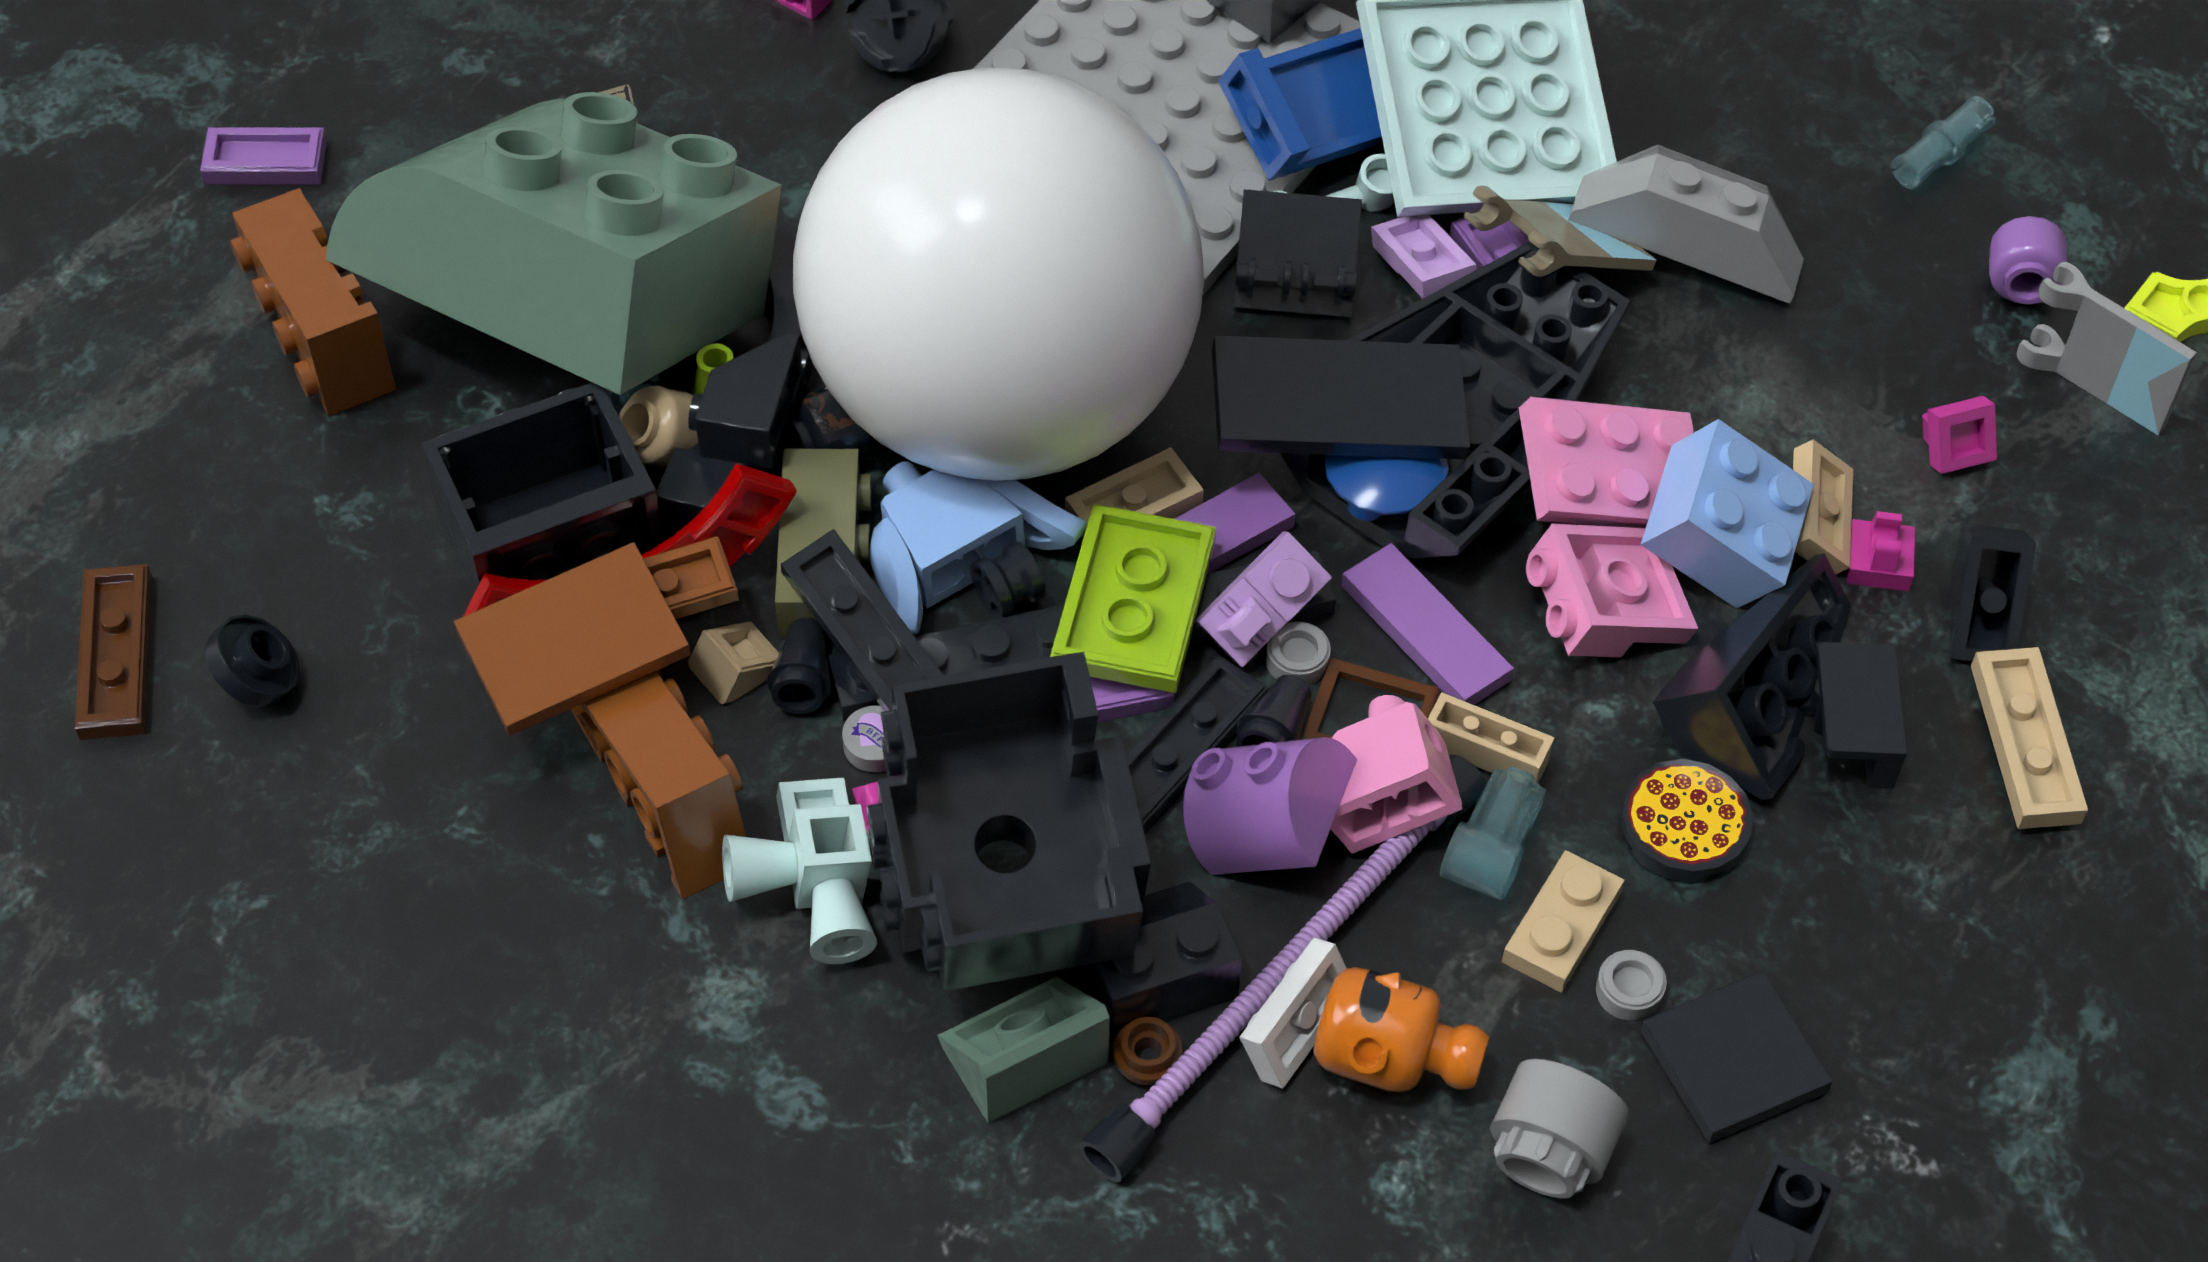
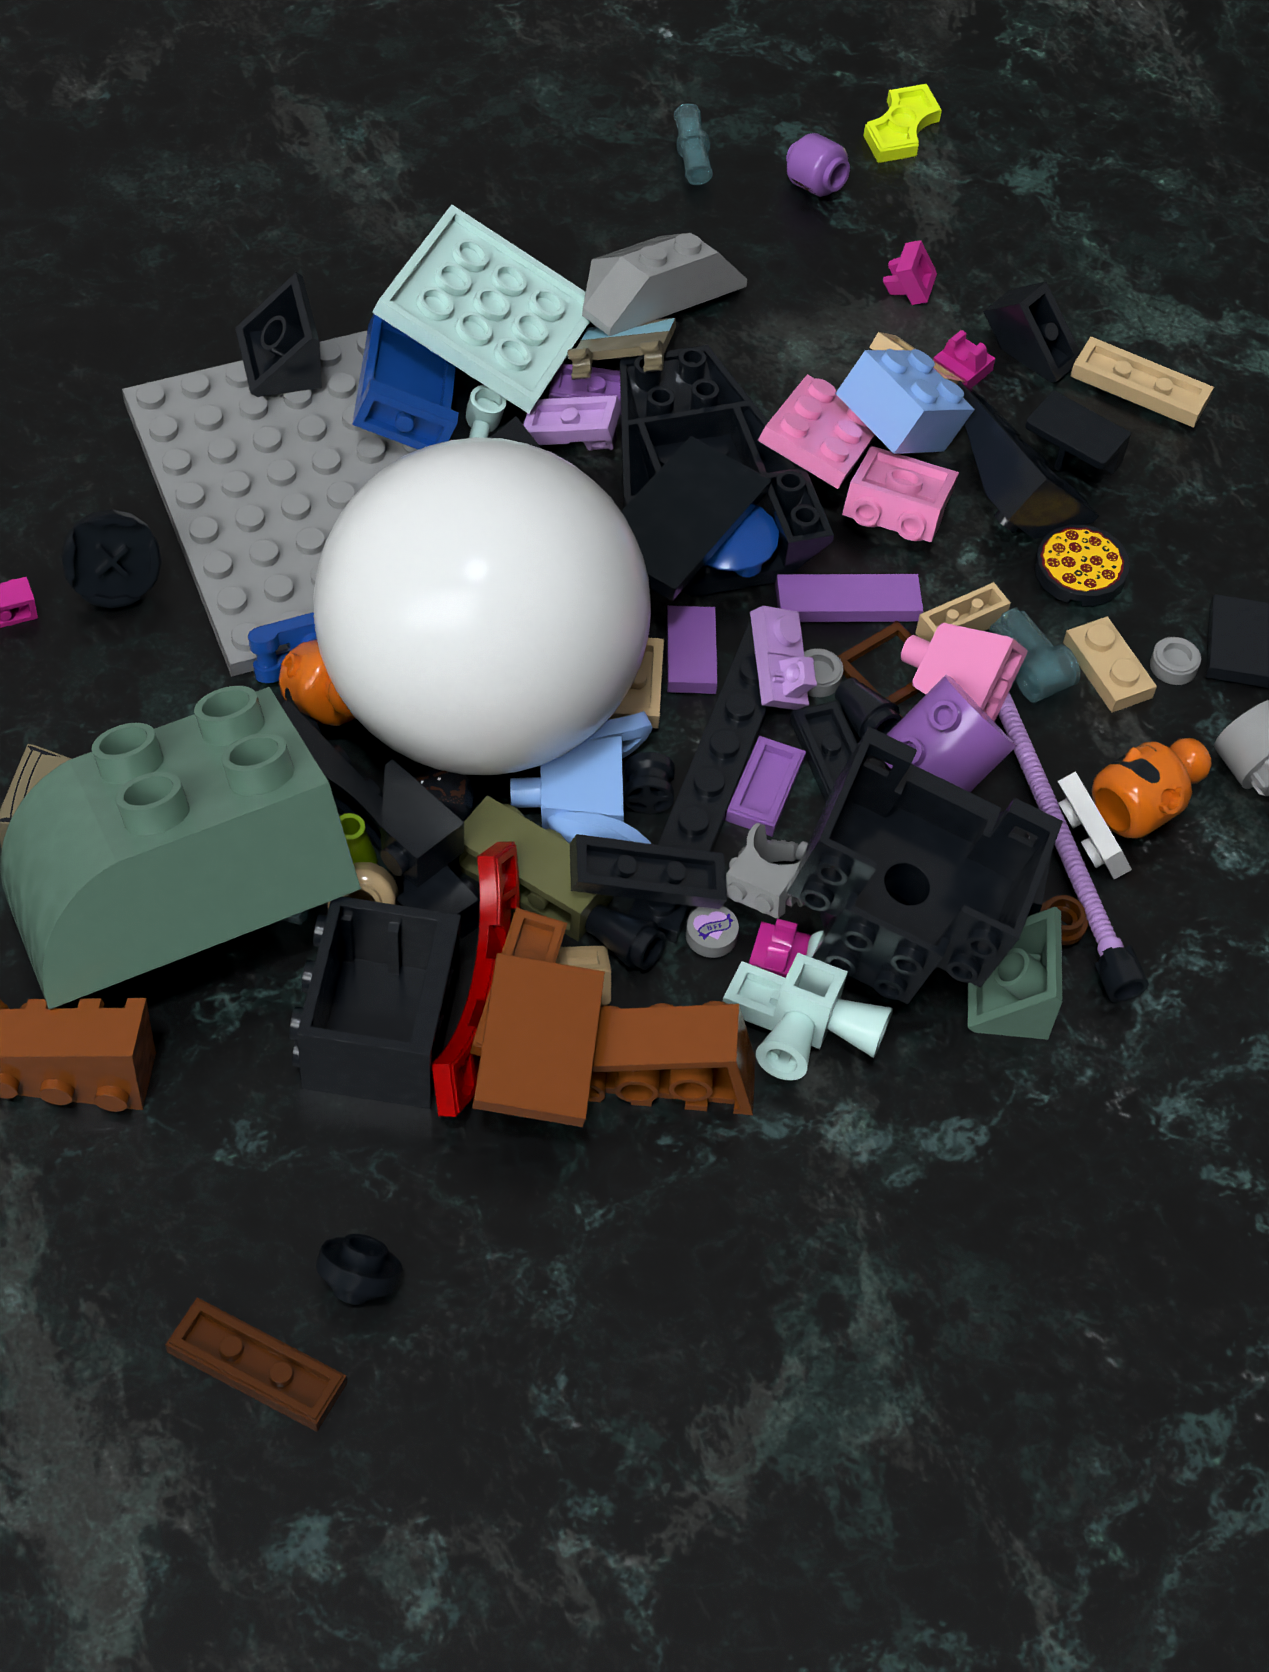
camera: 60 degrees left, 0 degrees up
(1135, 596) = (726, 722): lime tile -> none
(2109, 352) = (926, 171): light grey flag -> none

